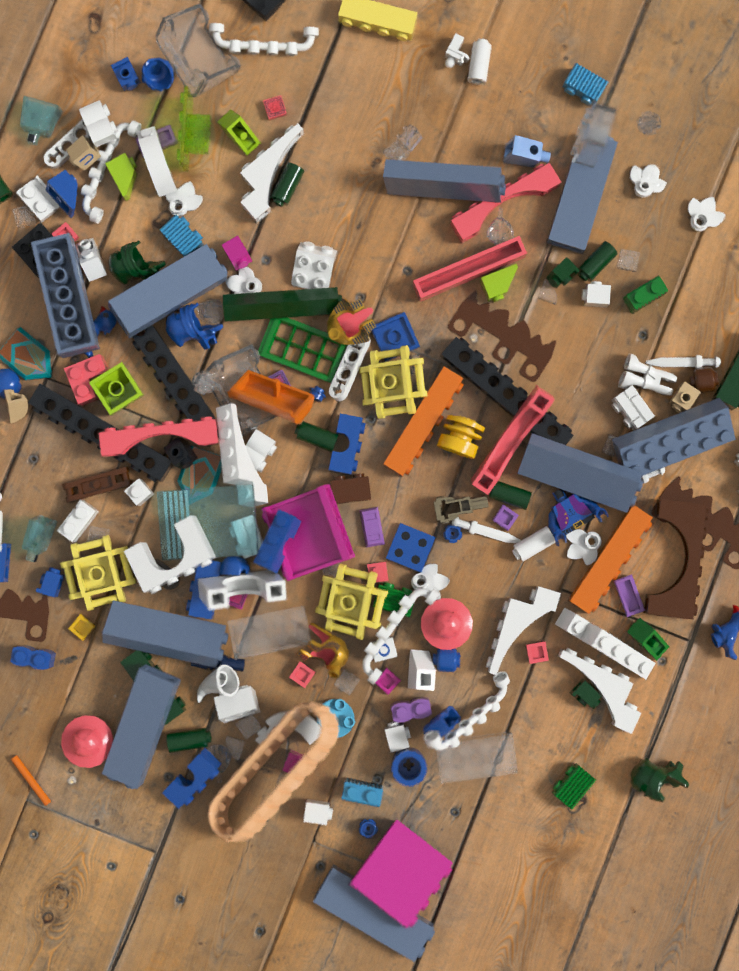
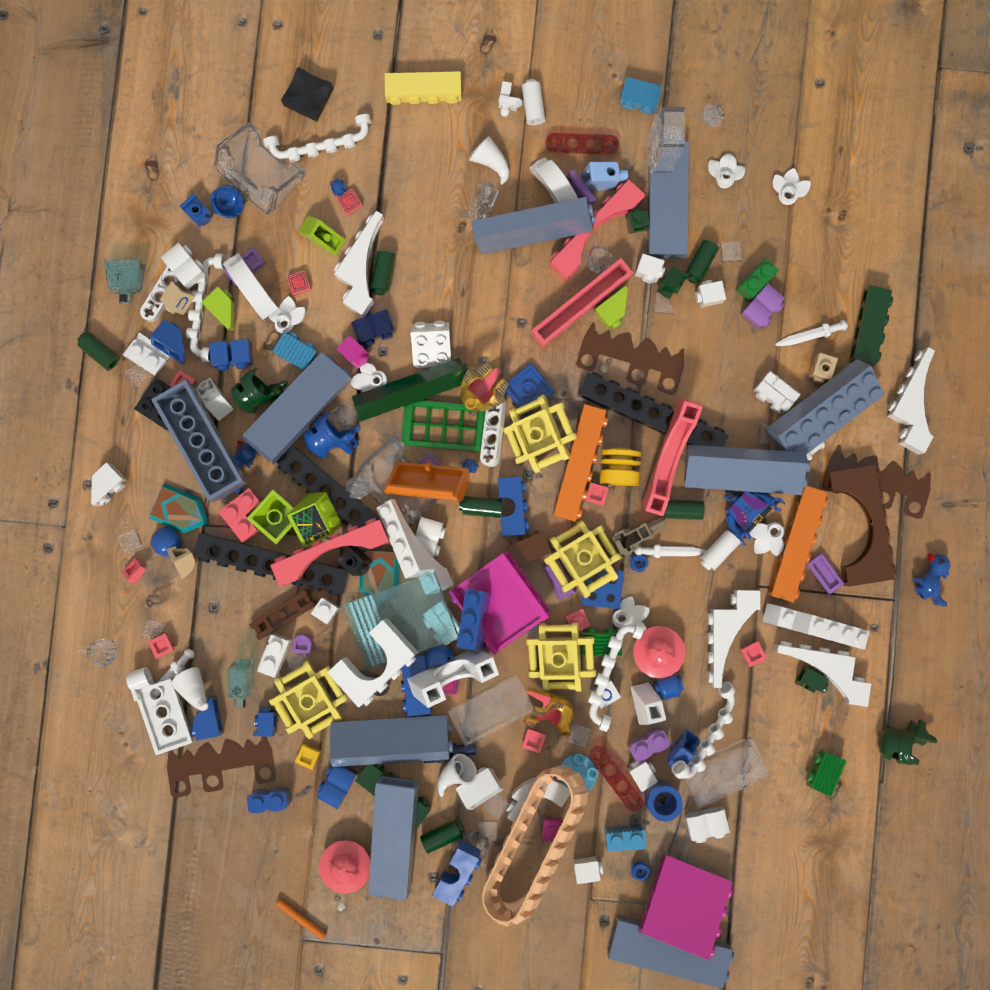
camera: 15 degrees left, 0 degrees up
(101, 662) = (336, 785): none -> blue brick
(107, 518) = (302, 644): none -> medium lavender tile
(119, 222) = (236, 354): none -> blue piece
(153, 400) = (314, 518): none -> slope
(194, 132) = (279, 247): clear neon green bracket -> none
(204, 171) = (298, 283): none -> tile
(262, 235) = (373, 328): none -> clear blue brick
(268, 90) = (338, 187): none -> blue plate
(368, 734) = (616, 778): none -> clear red beam
(387, 681) = (618, 723): dark pink tile -> none
(400, 513) = (583, 558): none -> light yellow brick
(422, 100) = (489, 155): none -> white hat
(431, 456) = (597, 494): none -> coral plate
(445, 802) = (707, 824): none -> white brick
(476, 143) = (554, 180): none -> white arch
(498, 156) = (579, 187): none -> medium lavender tile
(505, 517) = (684, 532): medium lavender tile -> none
(514, 117) = (581, 147): none -> clear red beam
(545, 254) = (650, 269): none -> white brick
(546, 204) = (637, 221): none -> dark green brick
(644, 321) = (762, 307): none -> medium lavender brick
(648, 638) = (855, 609): green slope -> none
(650, 379) = (785, 358): white piece -> none
(704, 379) = (837, 345): reddish brown head -> none

